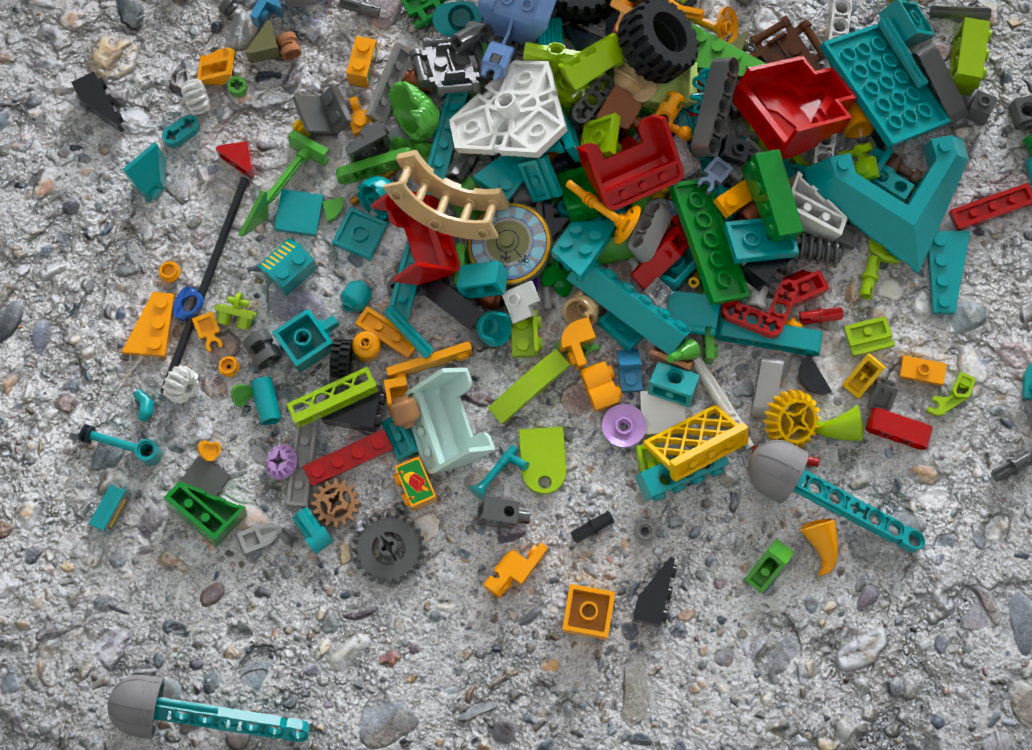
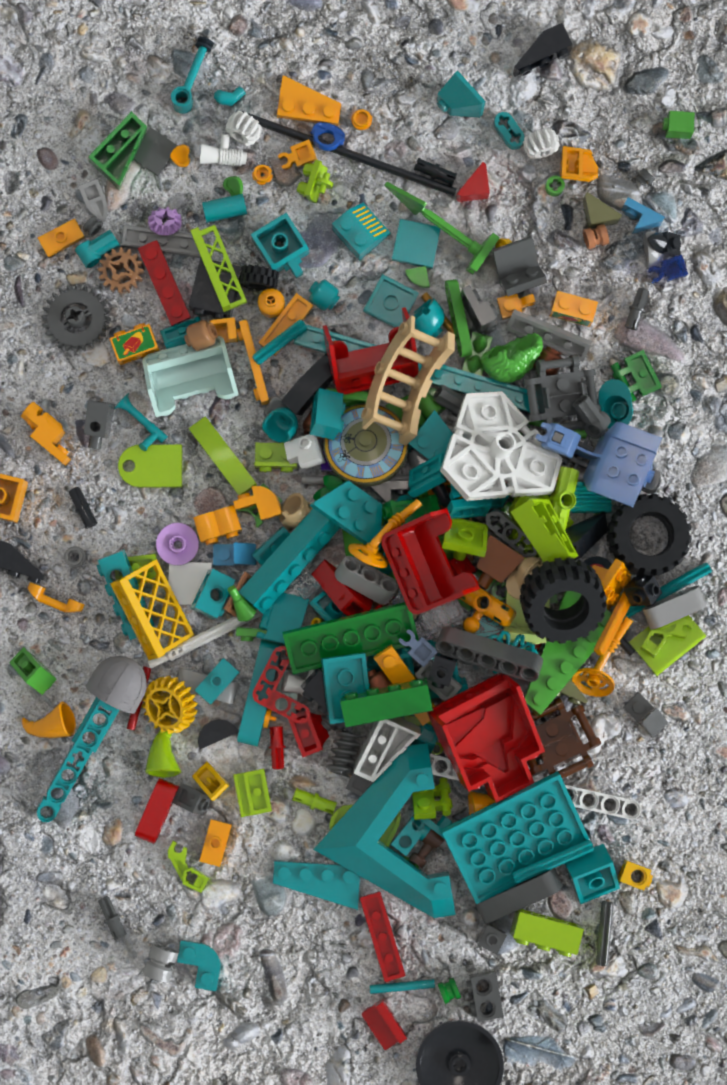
camera: 90 degrees right, 10 degrees up
(110, 509) = (131, 66): teal panel -> none
(209, 407) = (223, 155): none -> white piece
(224, 197) = (435, 171): none -> black pin
(261, 347) = (277, 204): dark grey wheel -> none
(300, 571) = (61, 237): none -> light orange plate
(698, 530) = (38, 593): none -> light orange bar
(763, 372) = (217, 681): none -> teal plate

